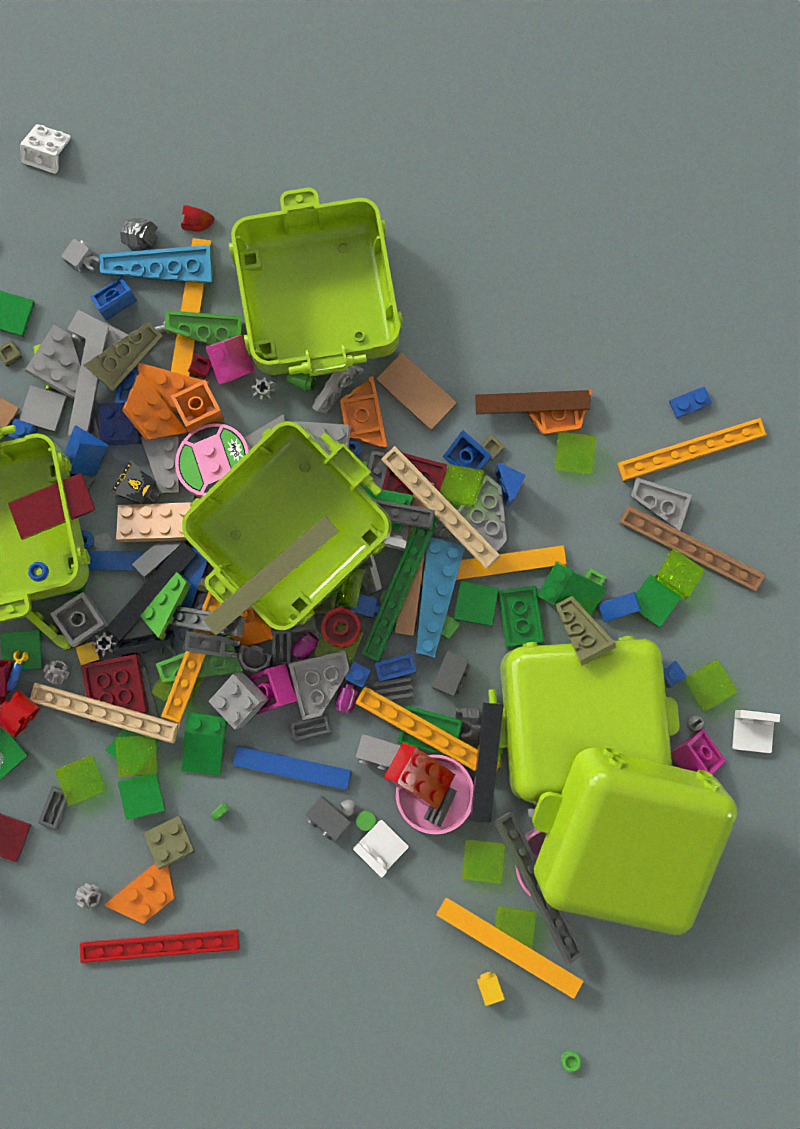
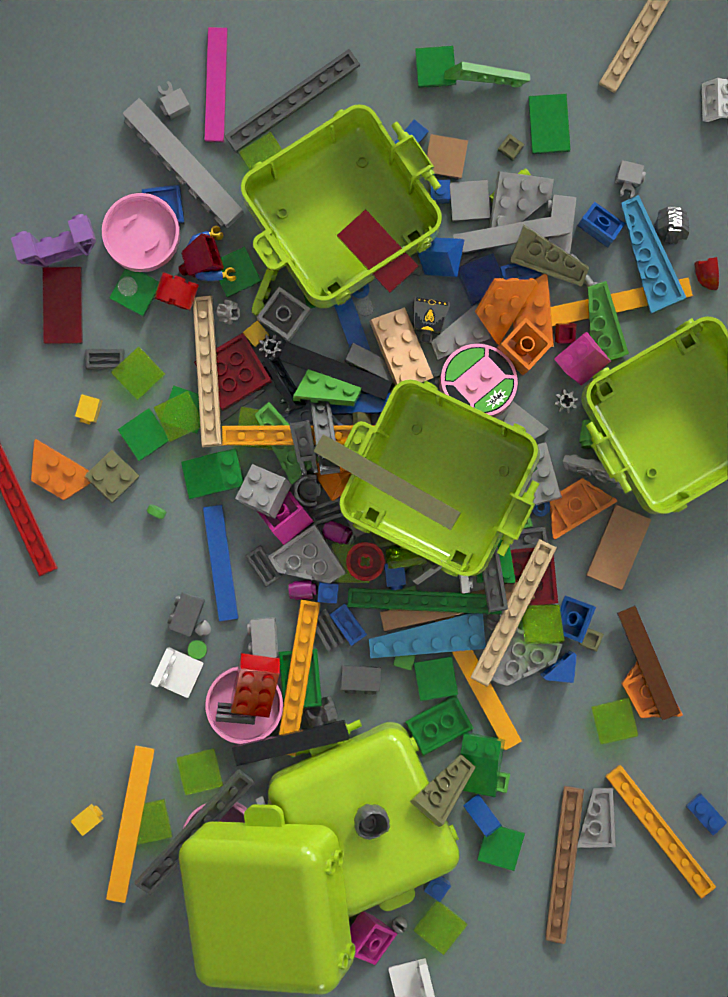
camera: 70 degrees right, 5 degrees up
(34, 567) = (308, 259): blue plate -> none
(87, 896) = (37, 421): light grey gear -> none
(96, 841) = (88, 409): none -> yellow brick
(571, 1061) = (49, 916): bright green tile -> none
(588, 709) = (371, 821): none -> dark grey hair
(679, 574) = (535, 861): clear neon green tile -> none

